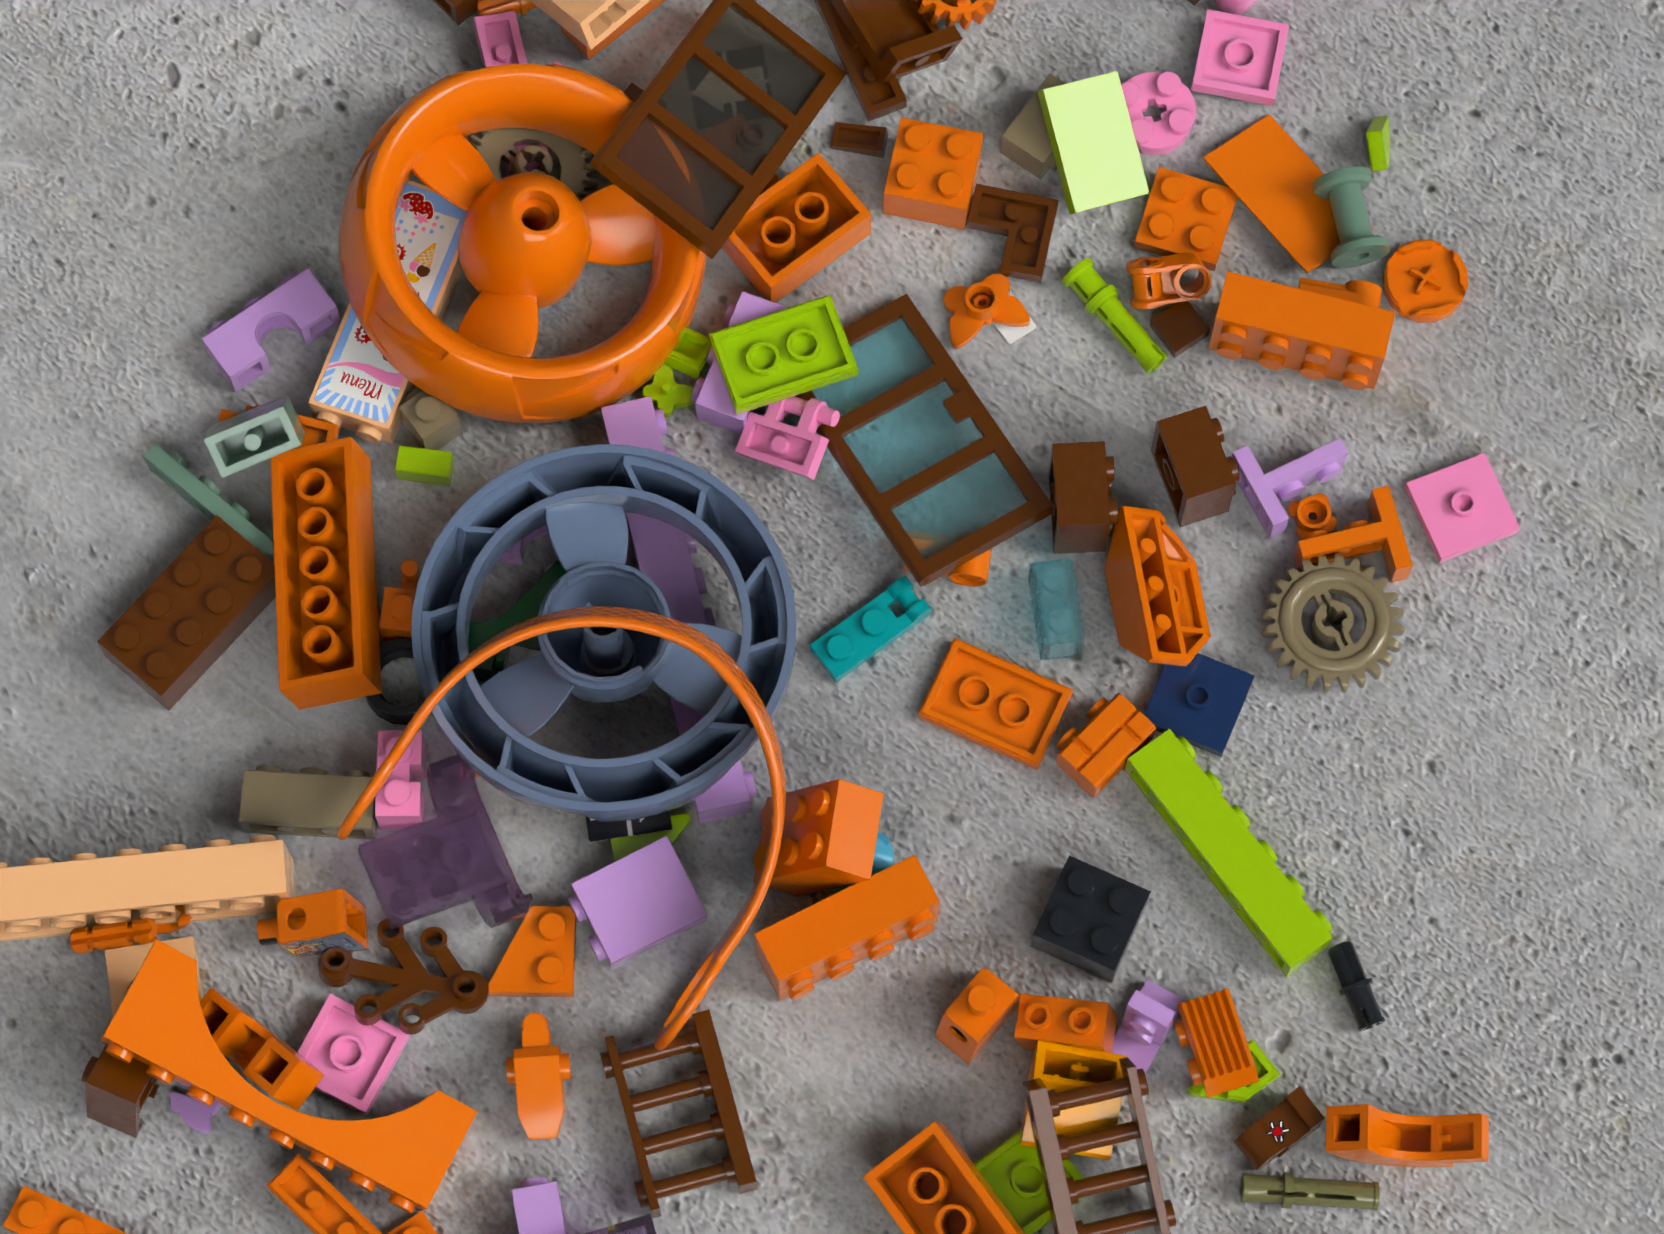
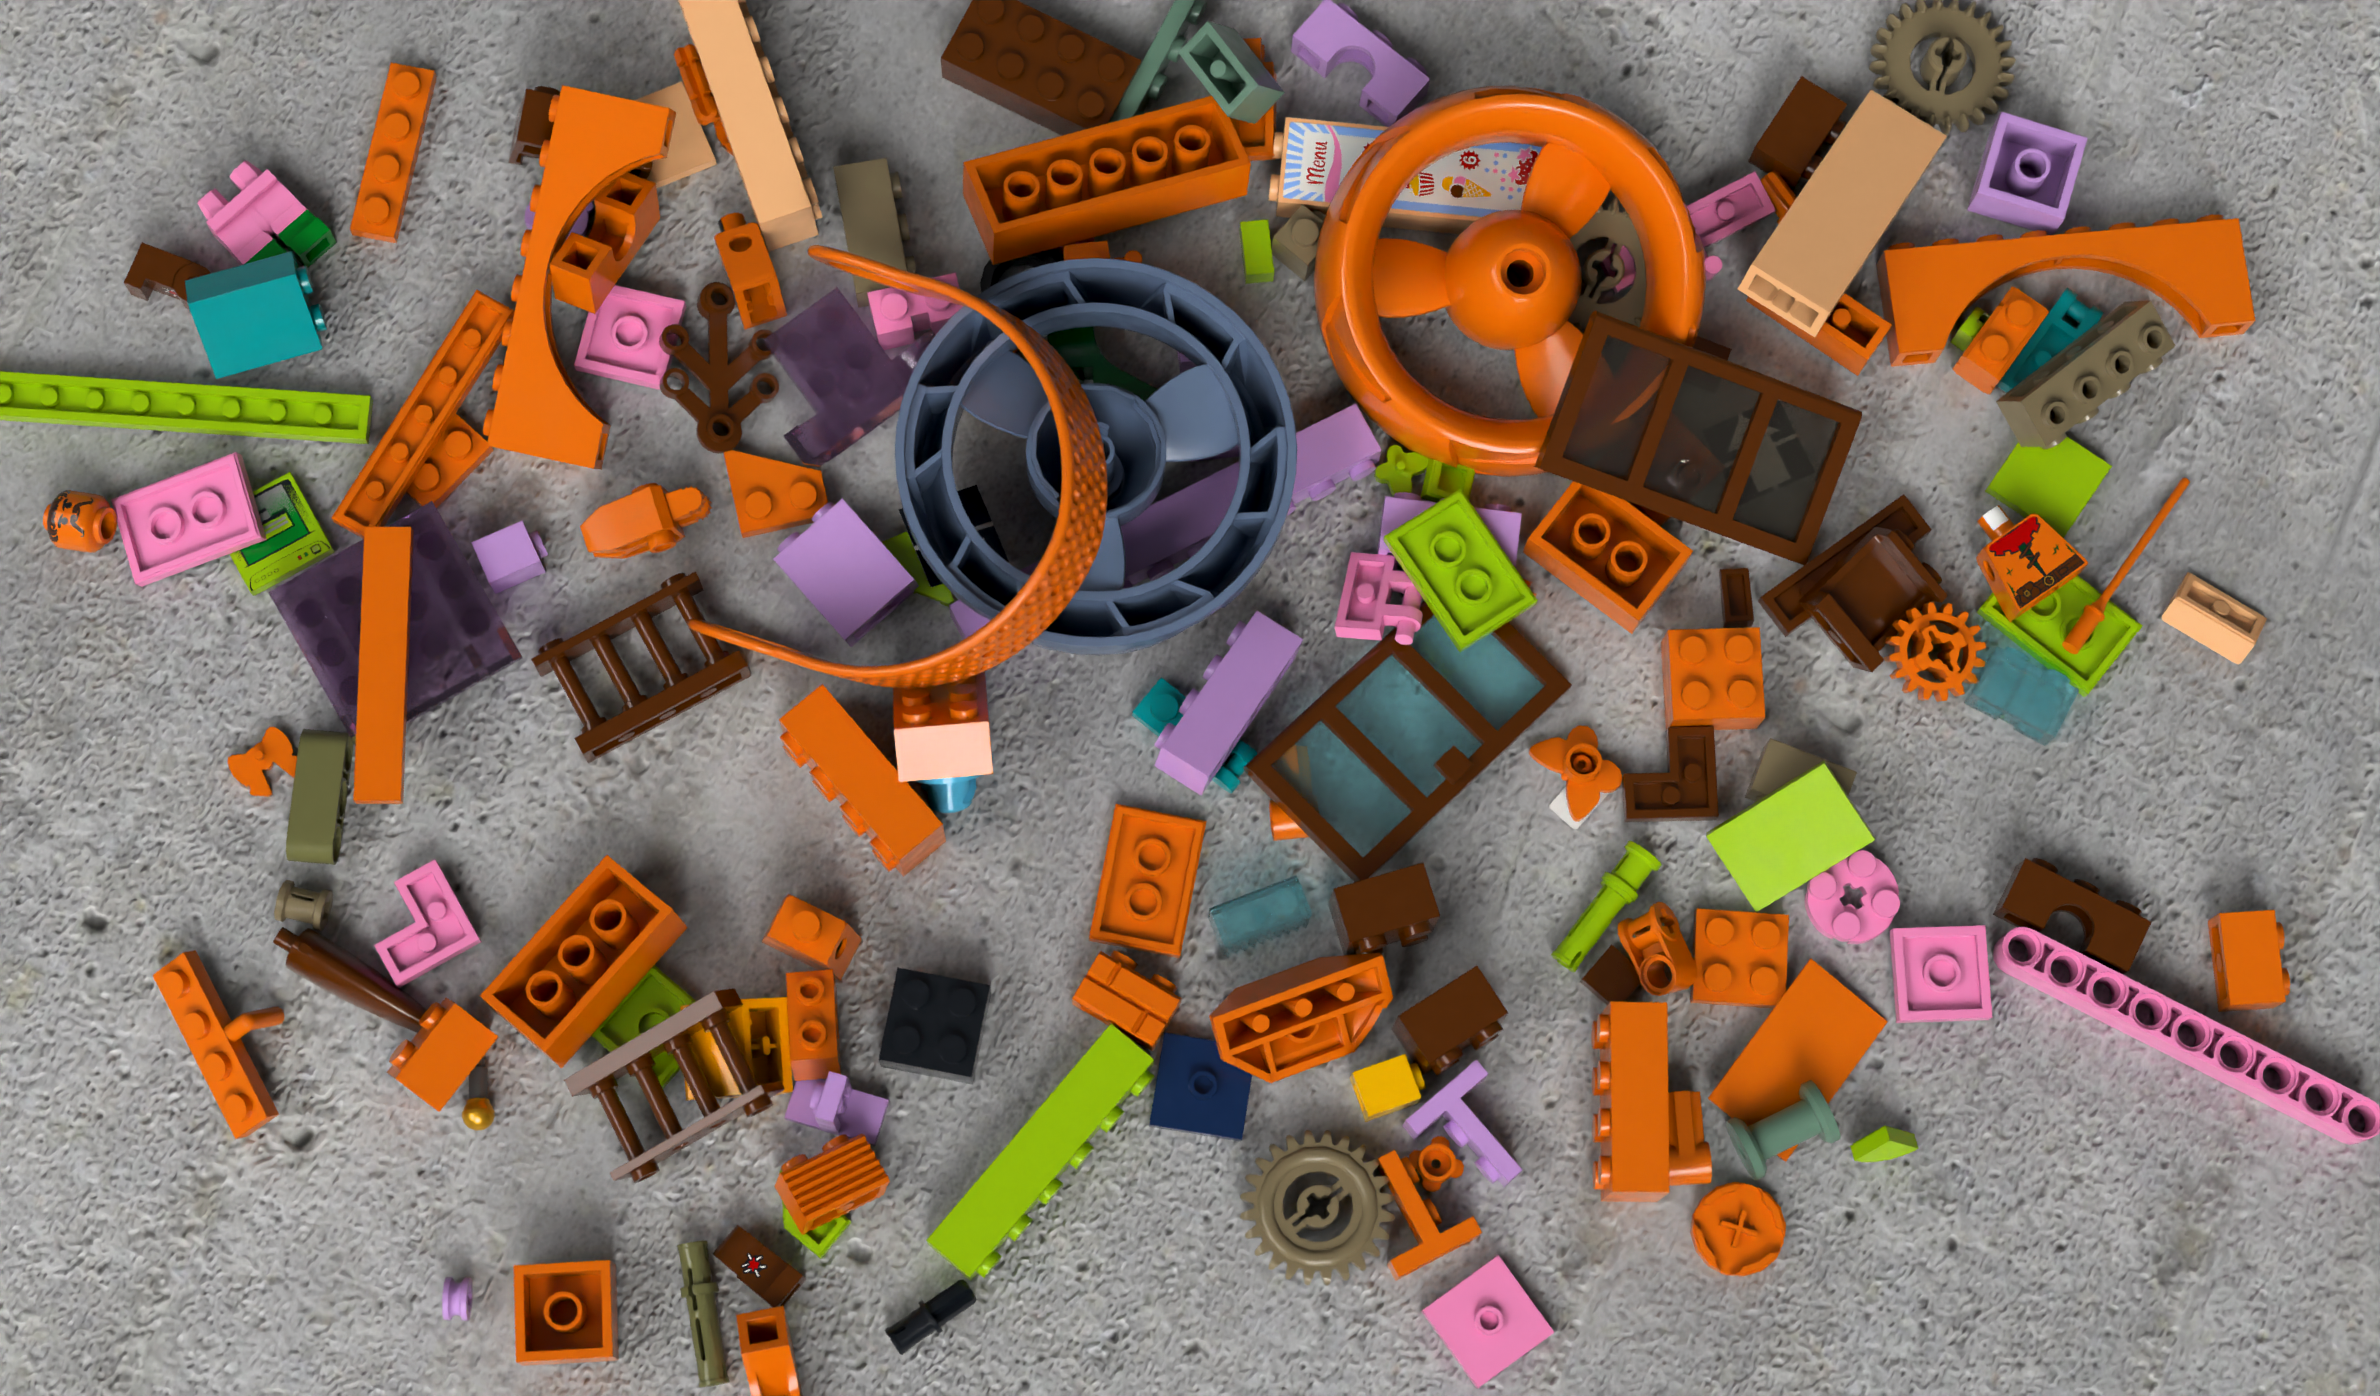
camera: 70 degrees right, 5 degrees up
(854, 587) = (1228, 701): none -> lavender brick
(1236, 539) = (1387, 1087): none -> yellow brick

